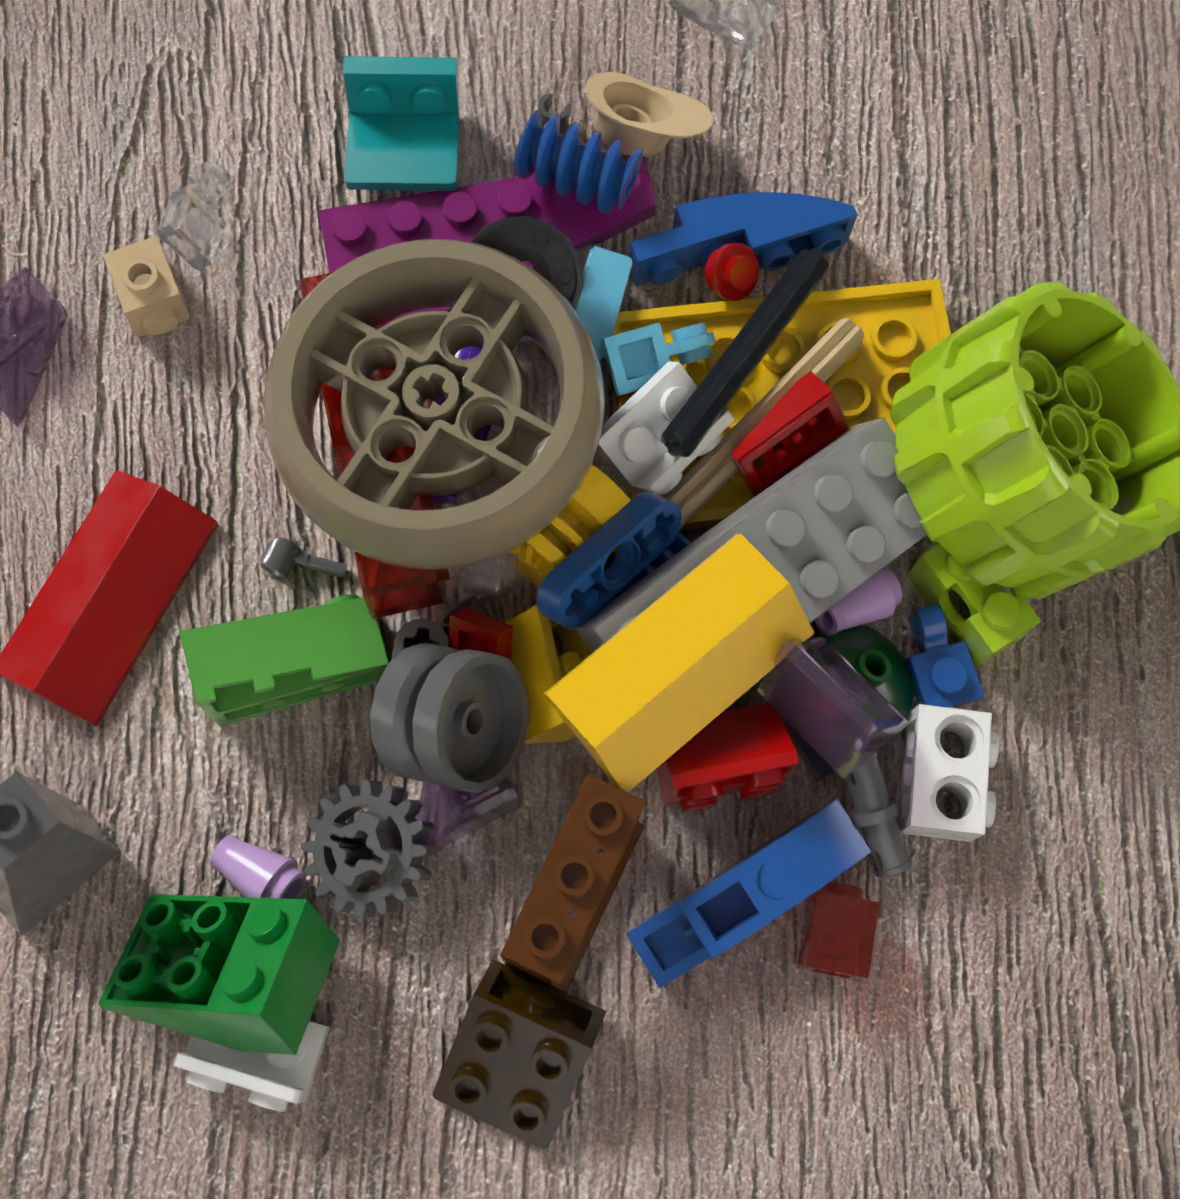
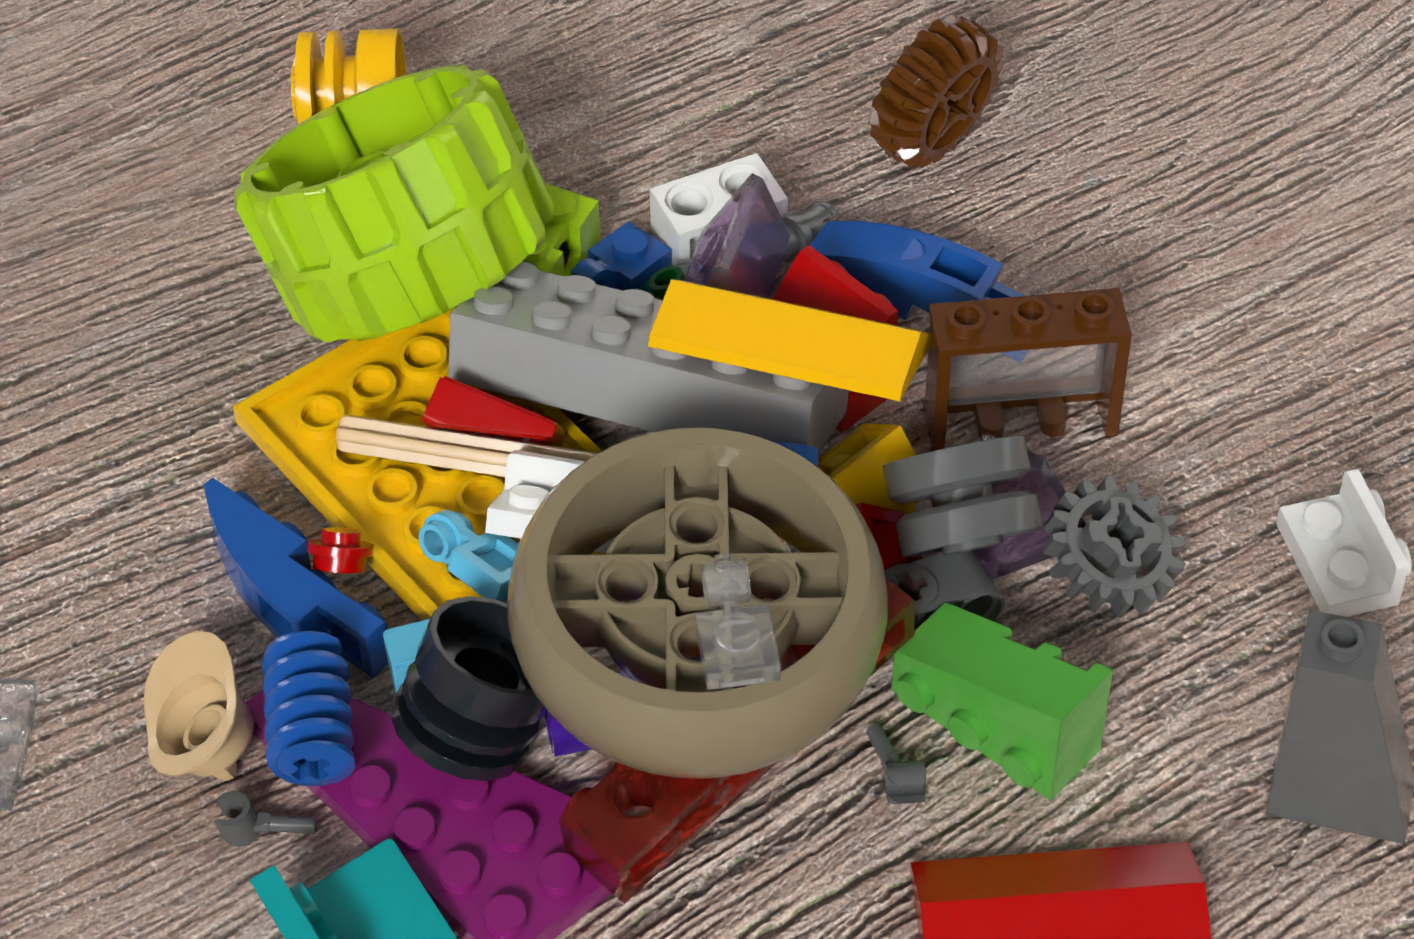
camera: 115 degrees left, 25 degrees down
(225, 969) = (1293, 557): green slope -> none
(257, 870) = (1203, 618): lavender cone -> none
(332, 356) = (736, 641): none -> clear plate
(519, 1054) = (1183, 362): dark brown bracket -> none
(744, 353) = (427, 479): black axle -> none
(838, 932) = (915, 205): clear red brick -> none
(962, 1042) = (936, 91): none -> reddish brown gear

